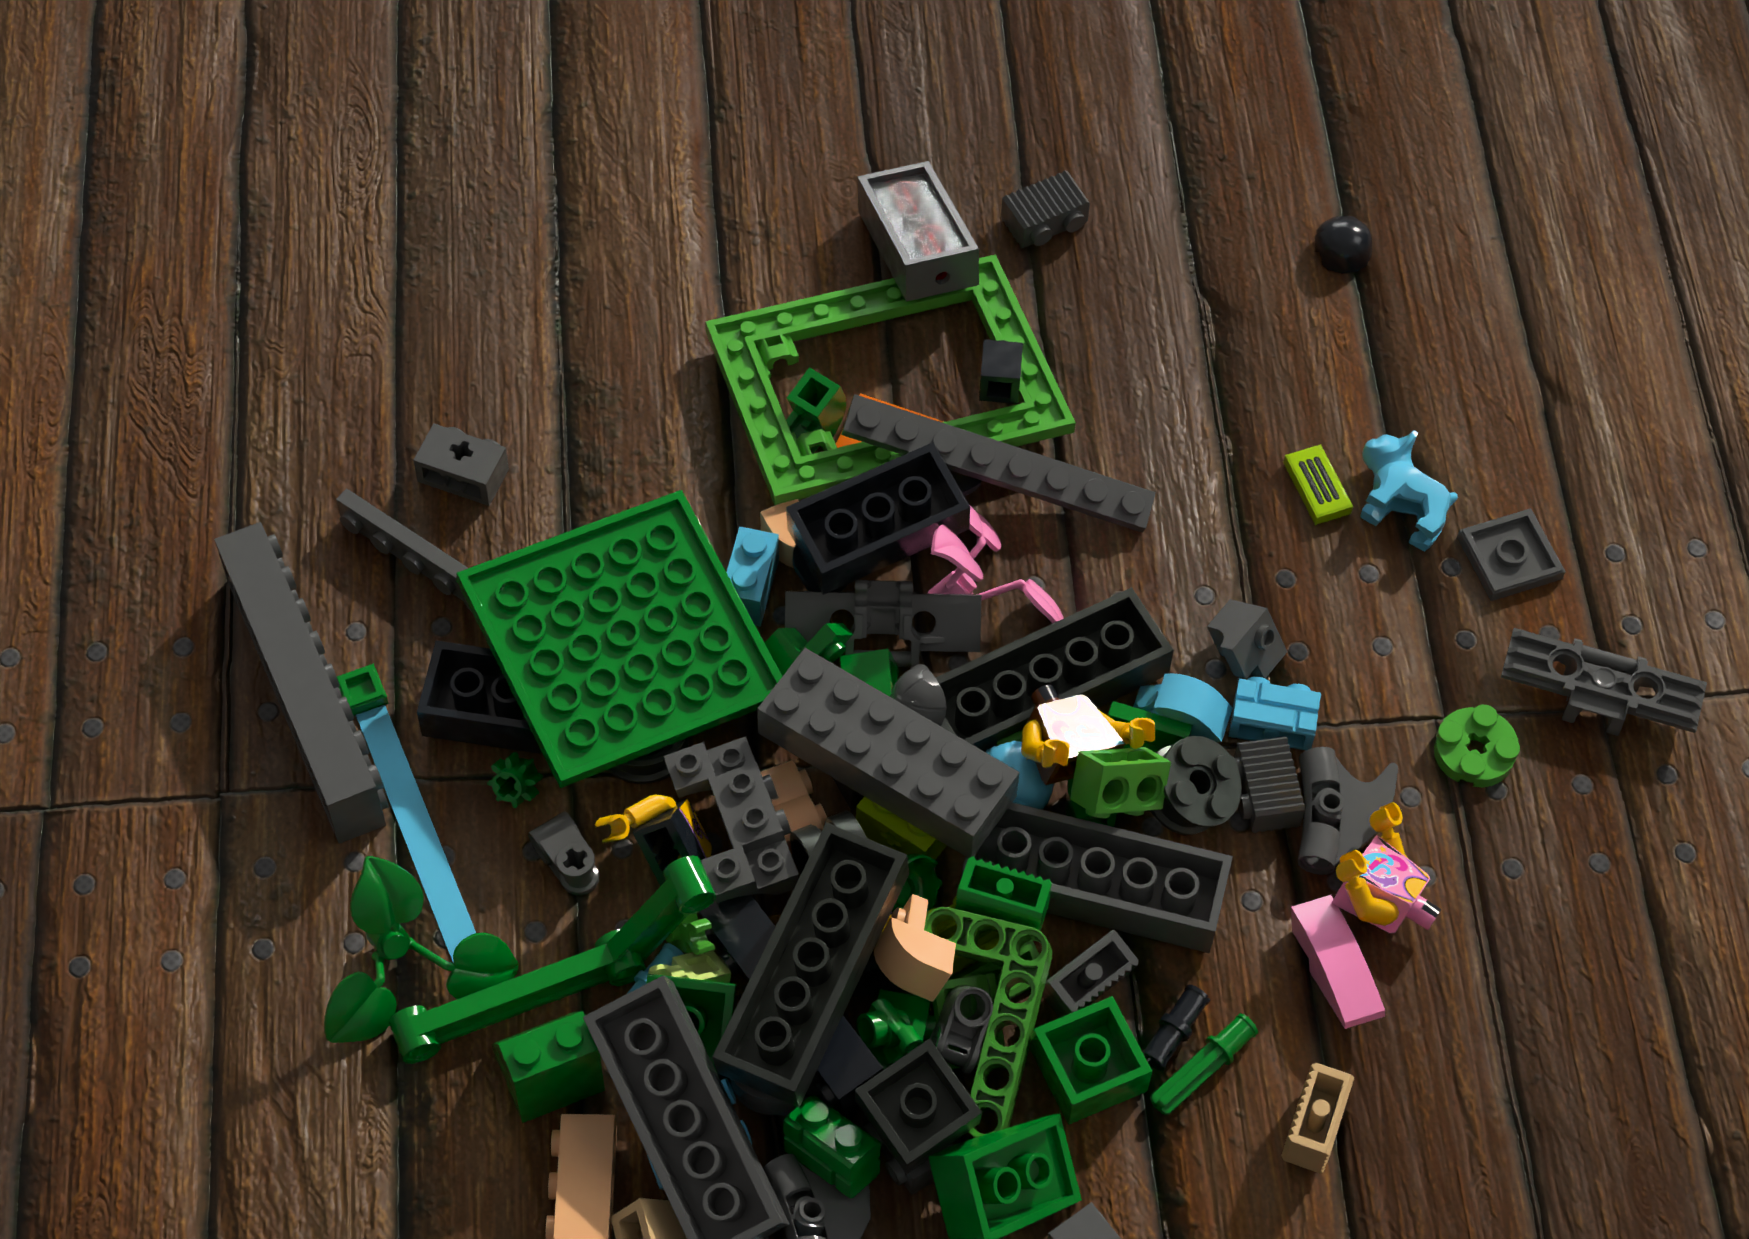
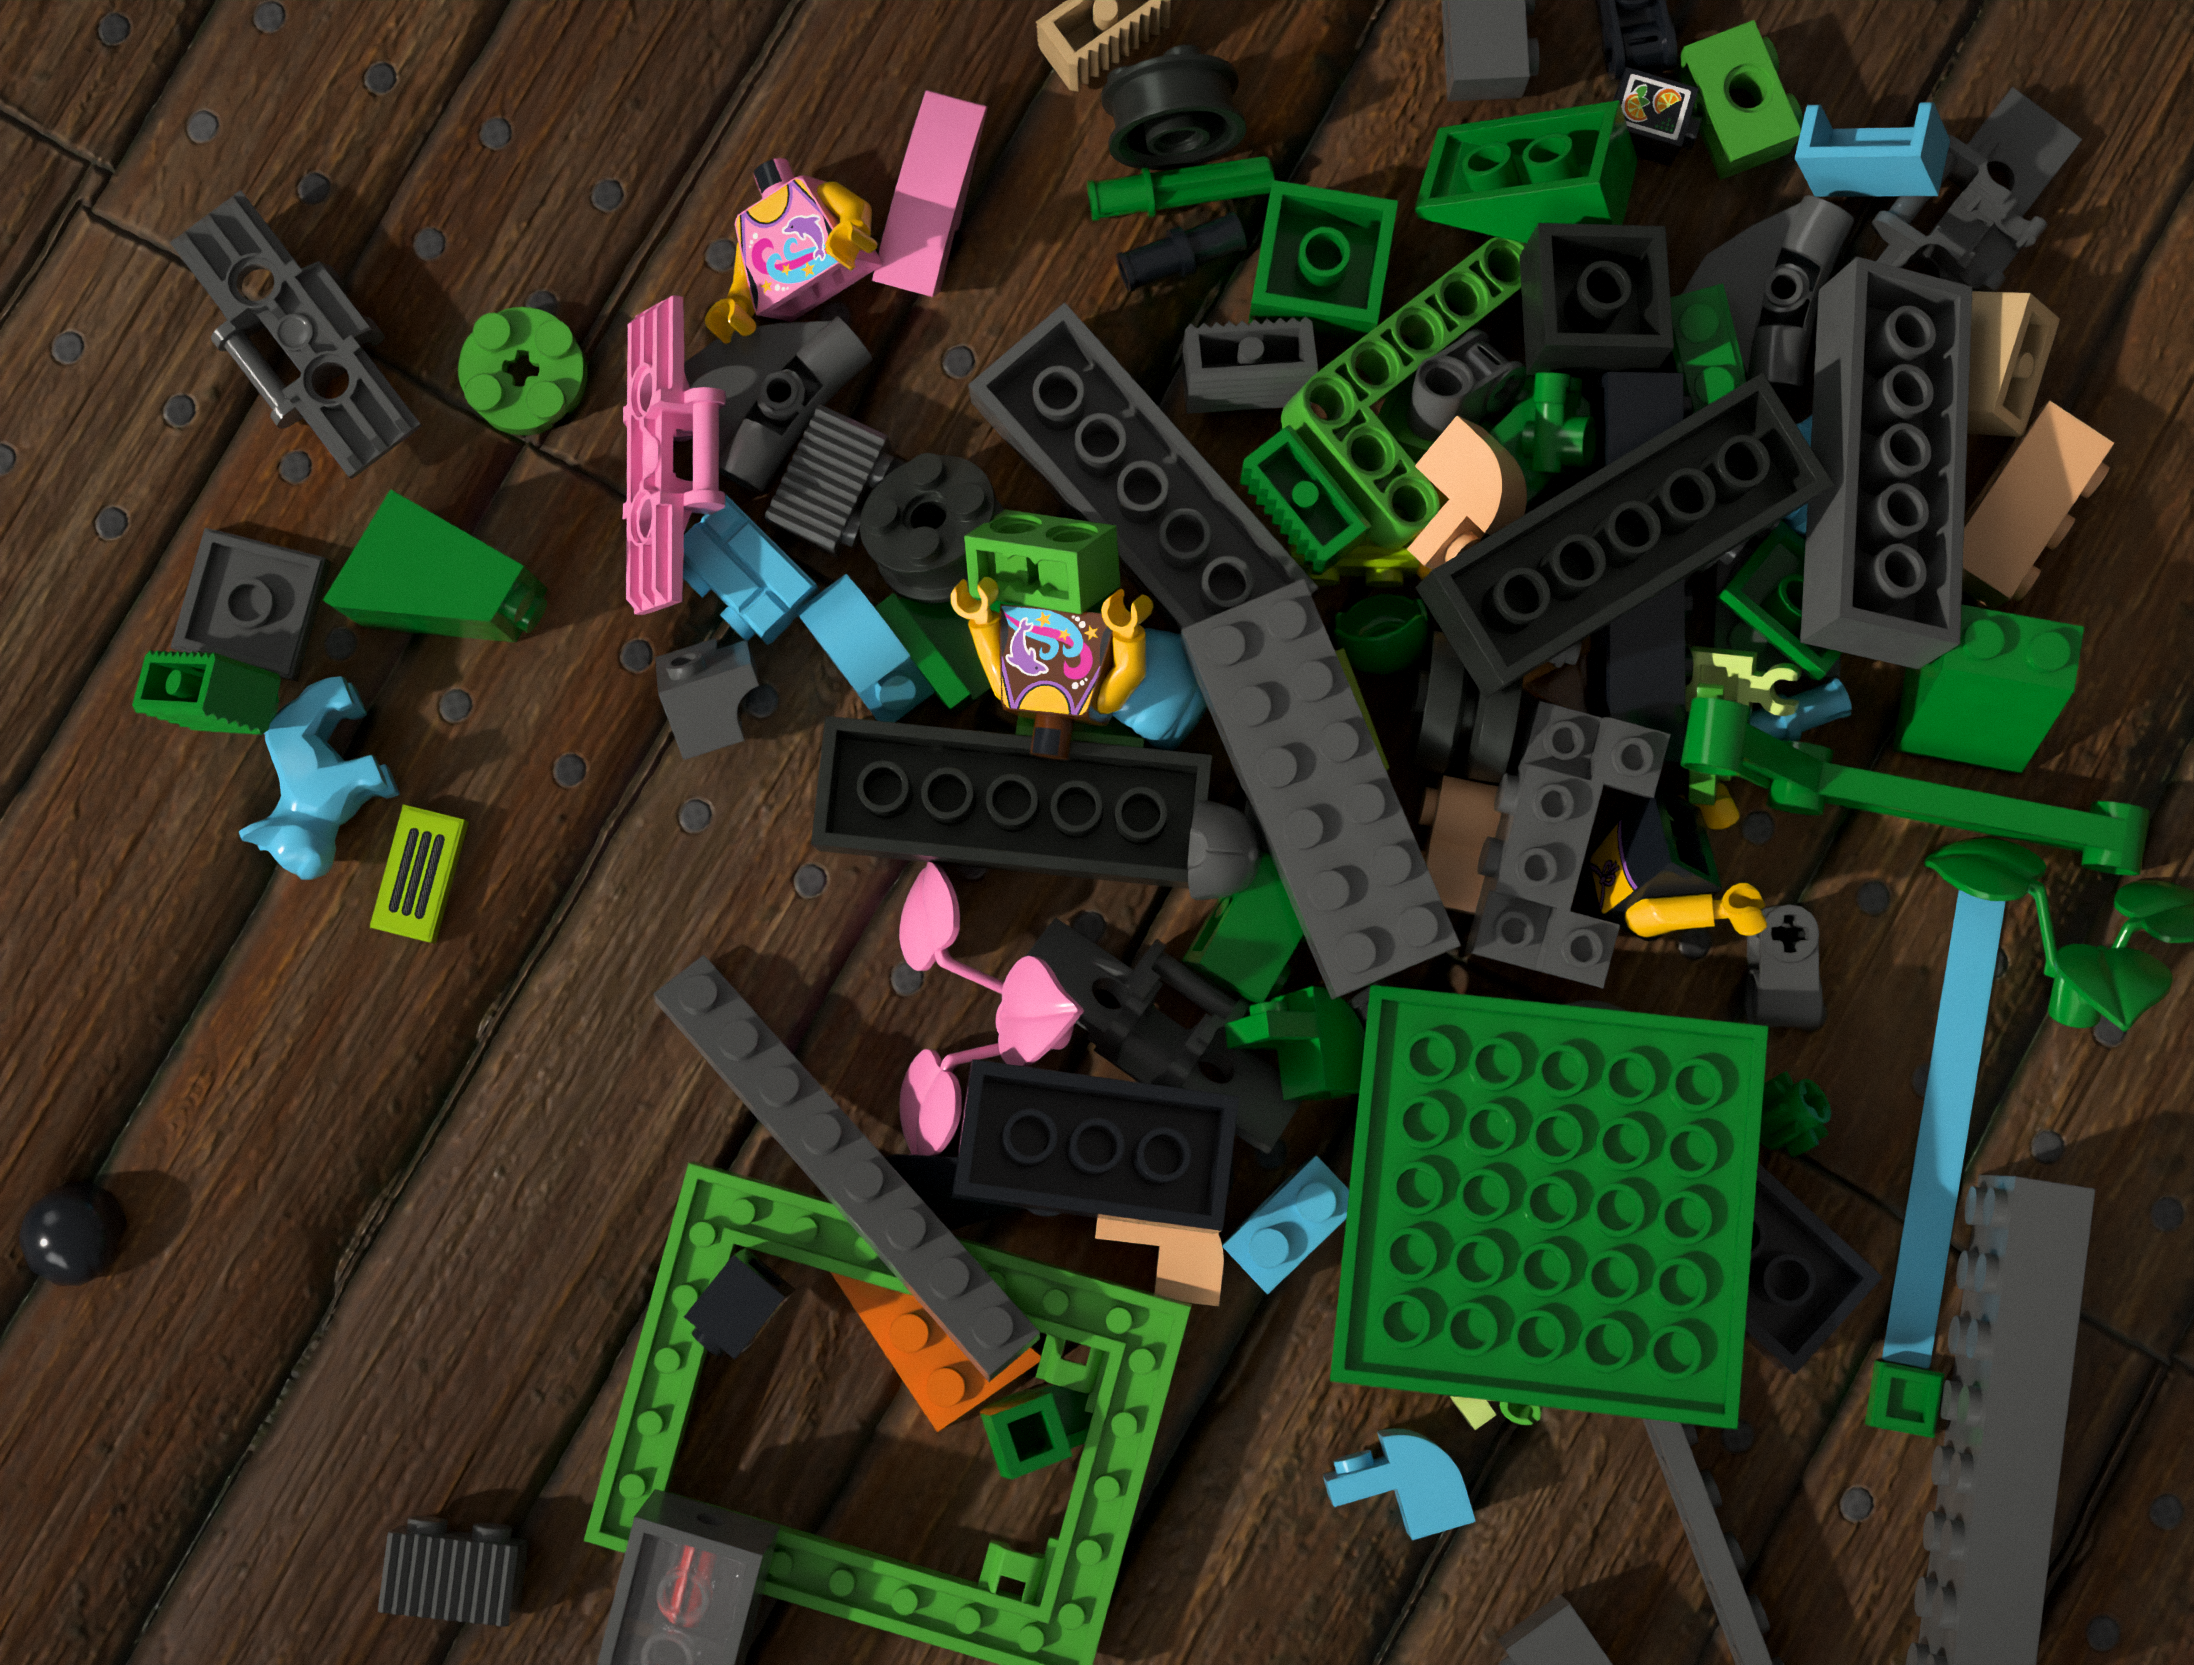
camera: 140 degrees left, 25 degrees up
(592, 498) = (1419, 1472): none -> medium azure brick
(1240, 1086) = (1173, 110): none -> pearl dark grey wheel
(1344, 711) = (657, 413): none -> bright pink piece
(1424, 605) = (434, 580): none -> green slope
(1489, 484) = (207, 692): none -> green brick

